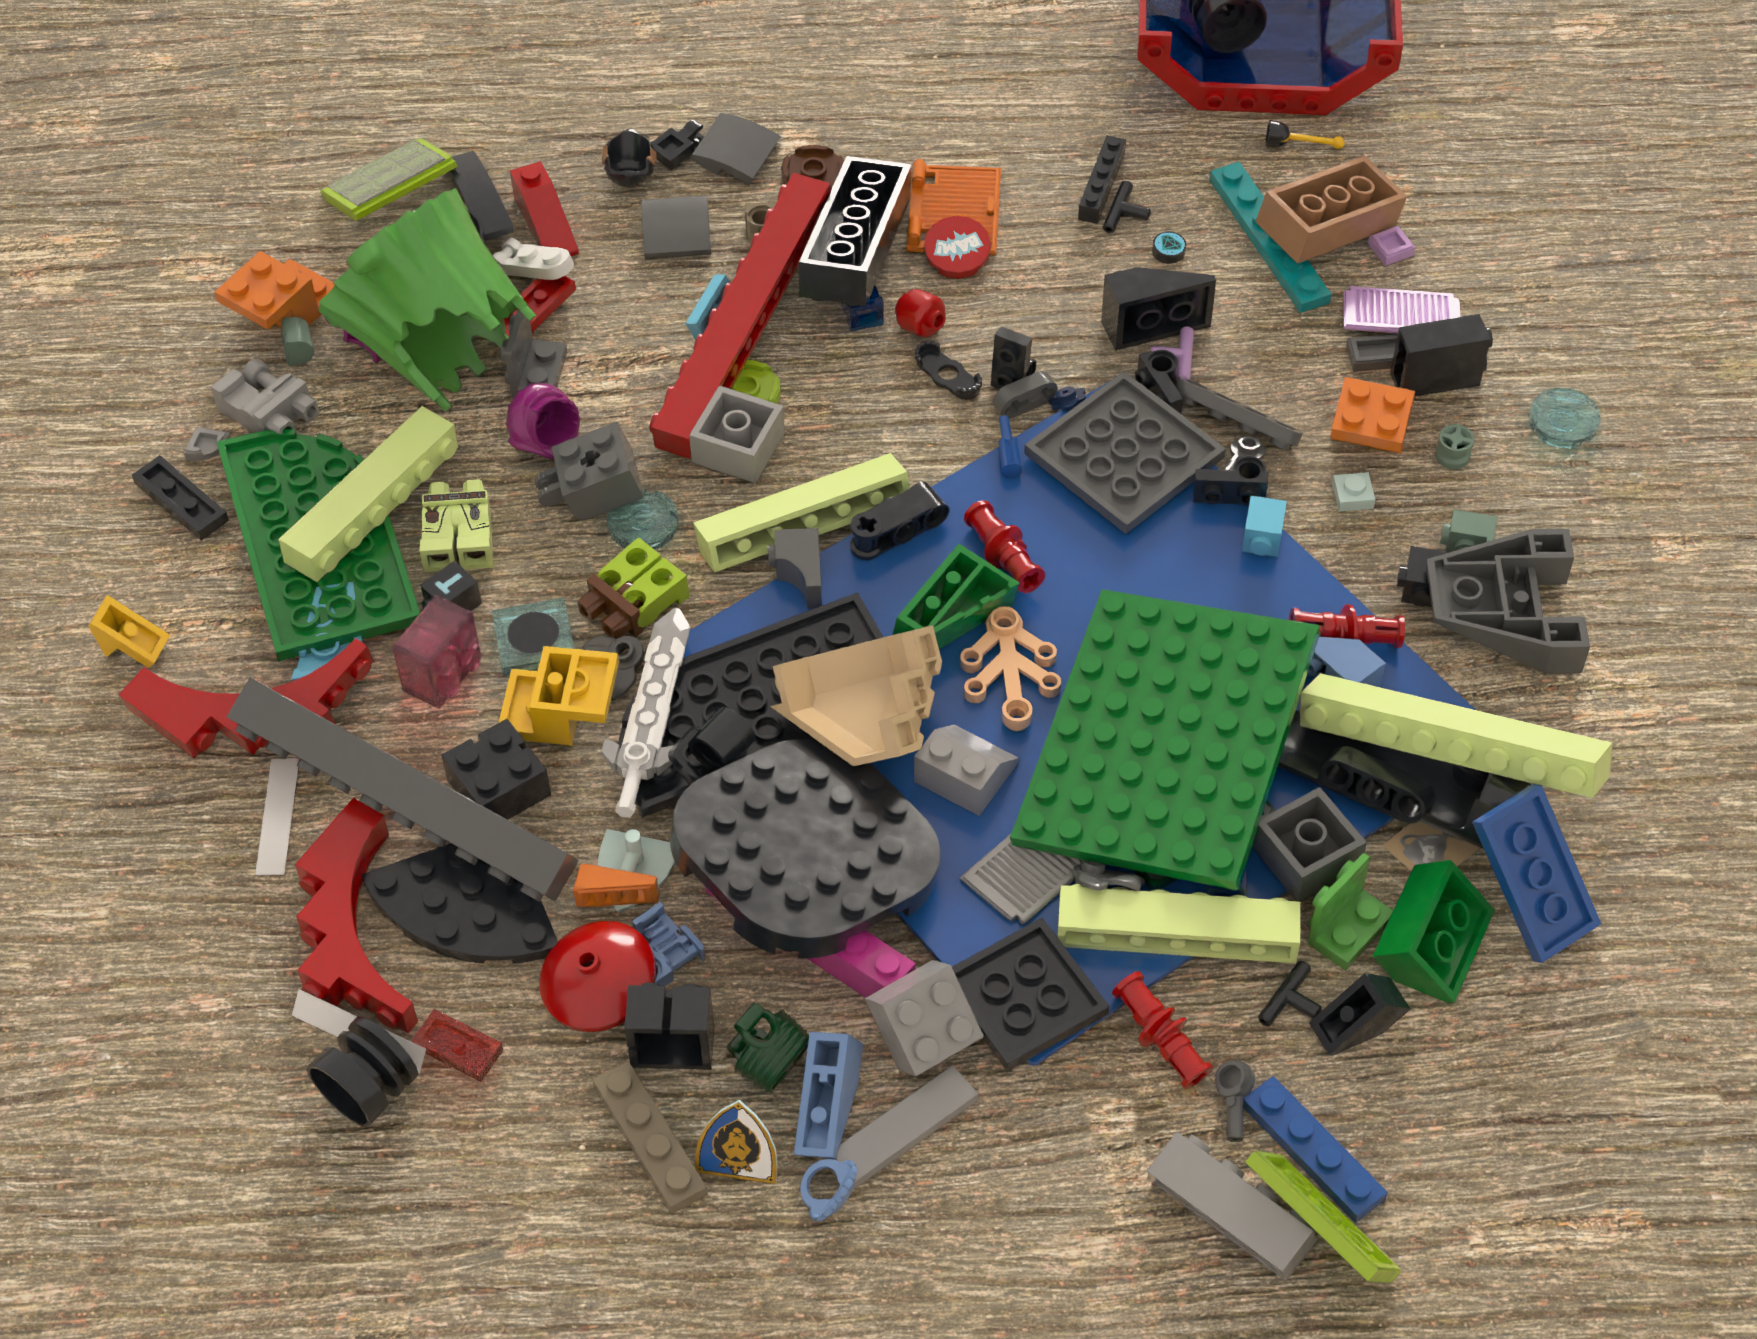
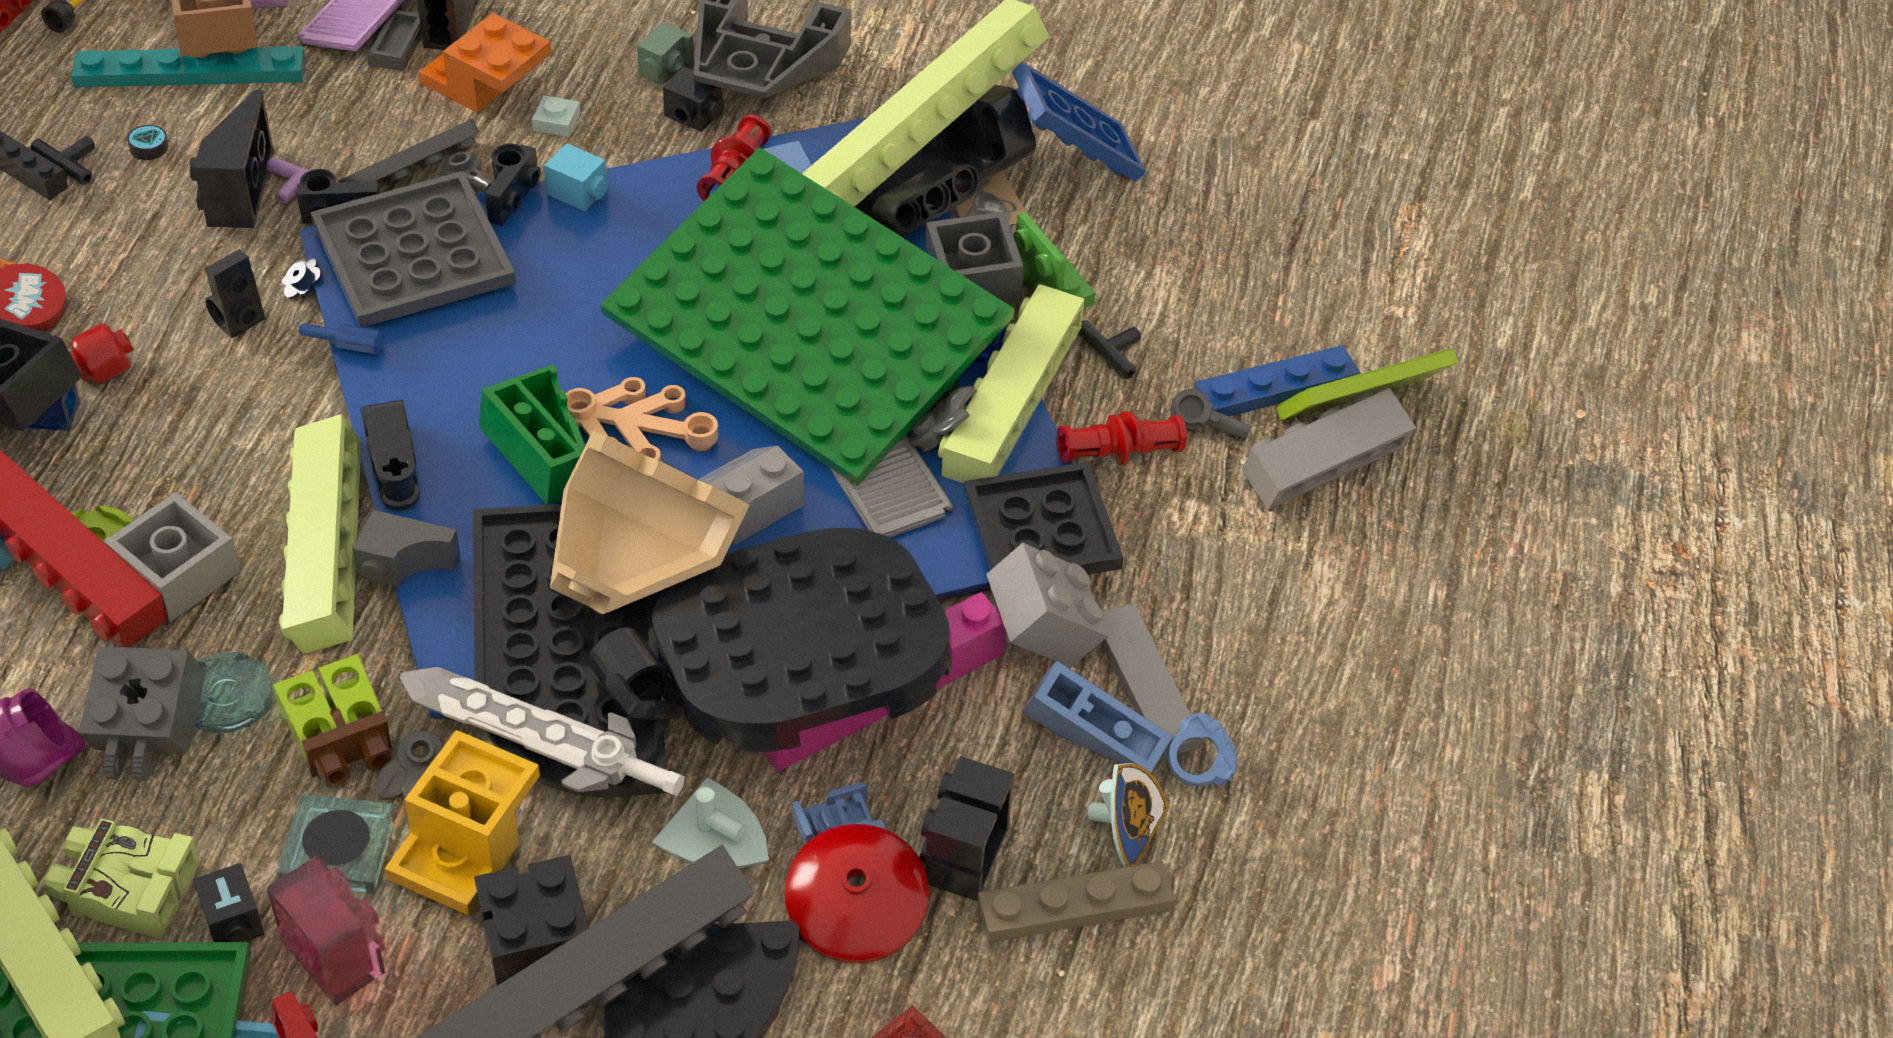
camera: 75 degrees left, 5 degrees down
(609, 887) = (752, 835): orange slope -> none
(775, 1054) = (1029, 748): dark green piece -> none
(932, 360) = (217, 358): black piece -> none
(1004, 546) = (479, 372): red piece -> none
(1025, 394) = (276, 306): dark grey beam -> none
(1359, 1013) = (1156, 301): black slope -> none
(1434, 931) = (1085, 225): green slope -> none
(1454, 446) = (551, 25): sand green wheel -> none

